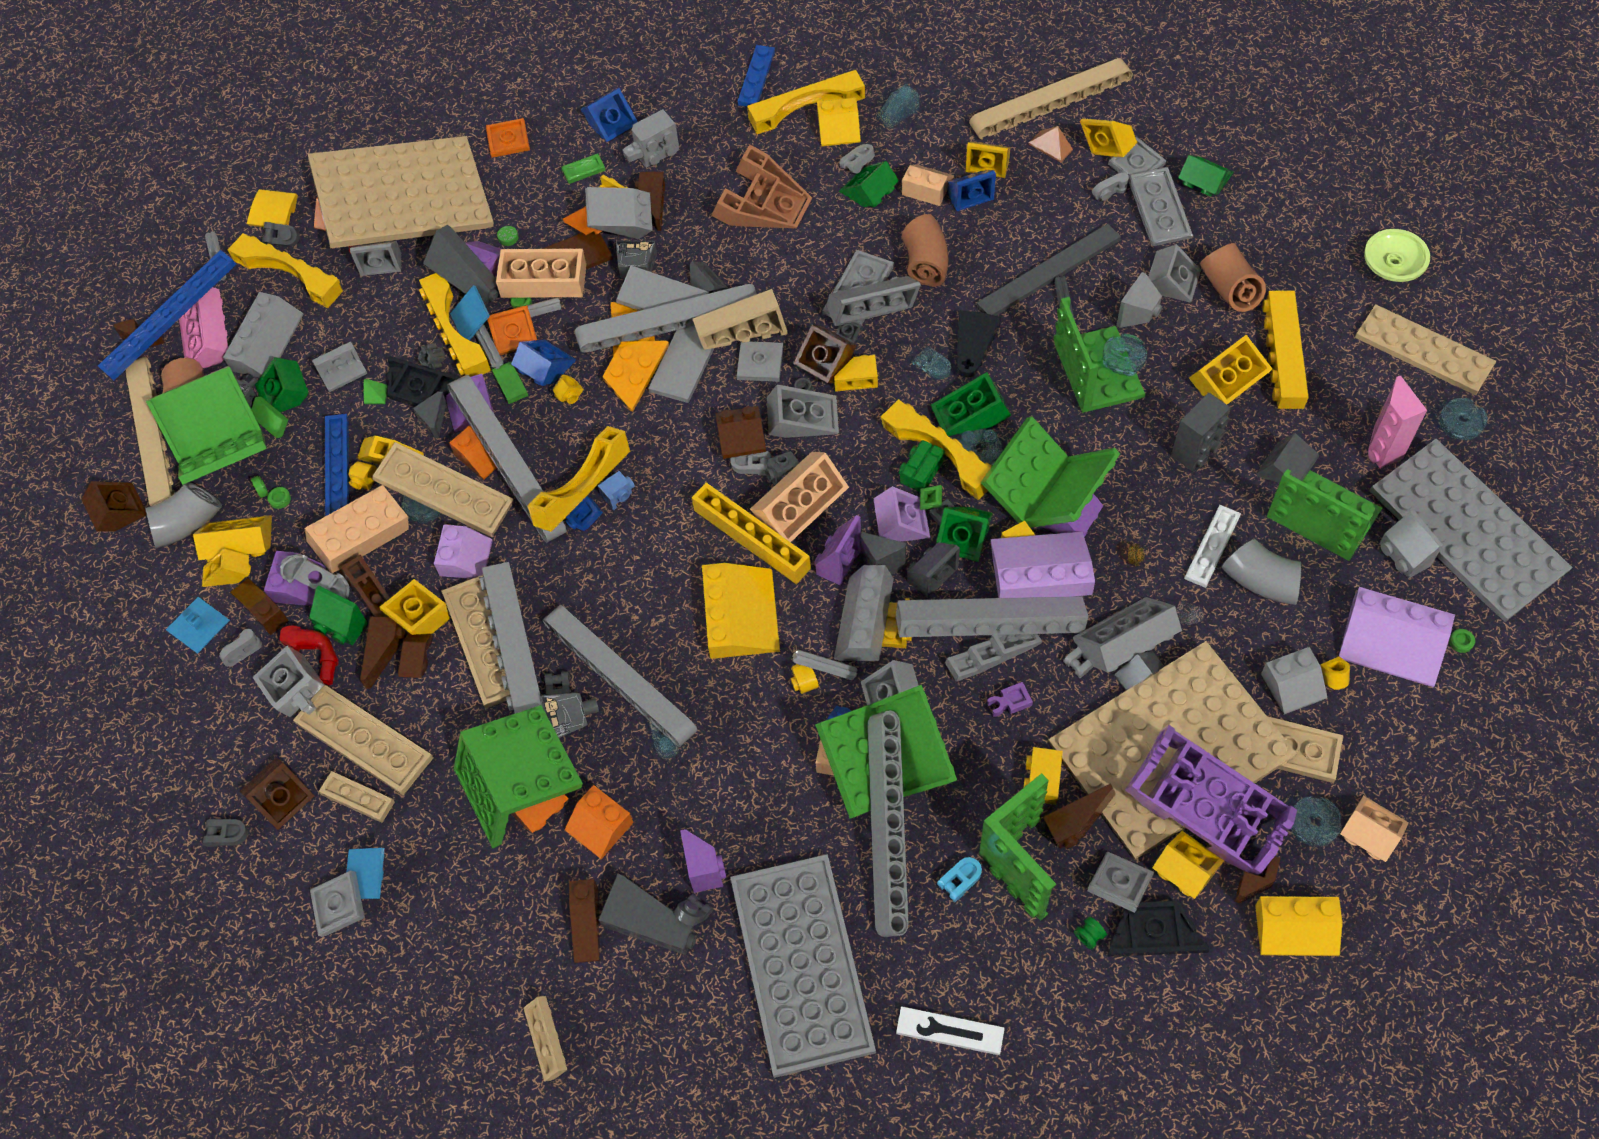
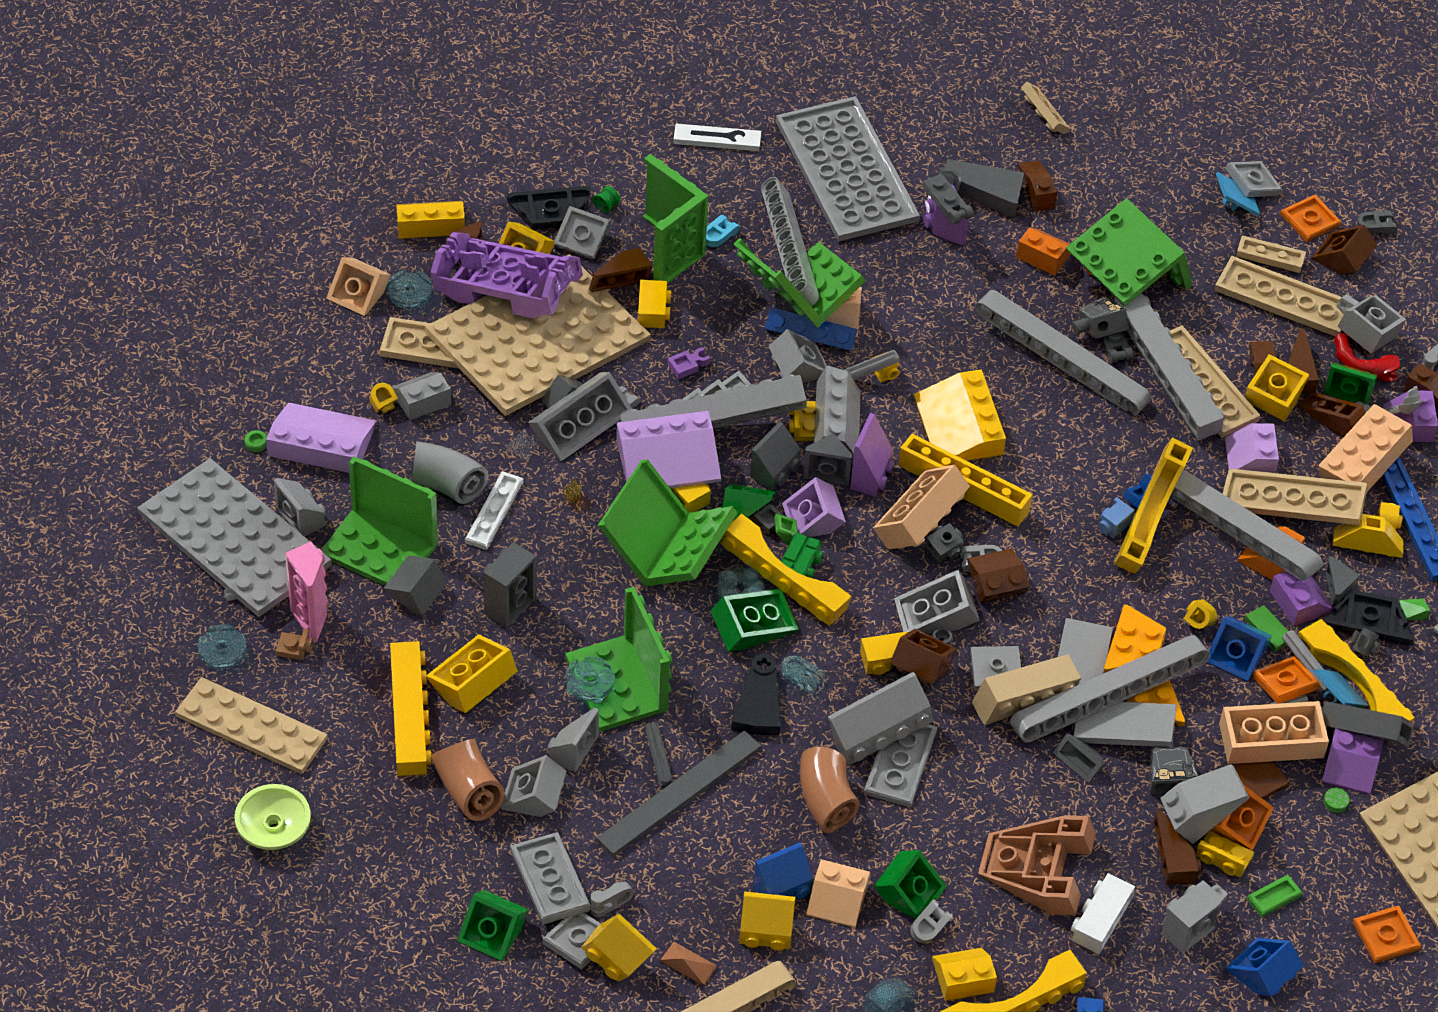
camera: 165 degrees right, 10 degrees down
(293, 849) = (1310, 218): none -> orange tile
(701, 849) = (947, 199): none -> dark grey plate
(721, 156) = (1102, 913): none -> white brick

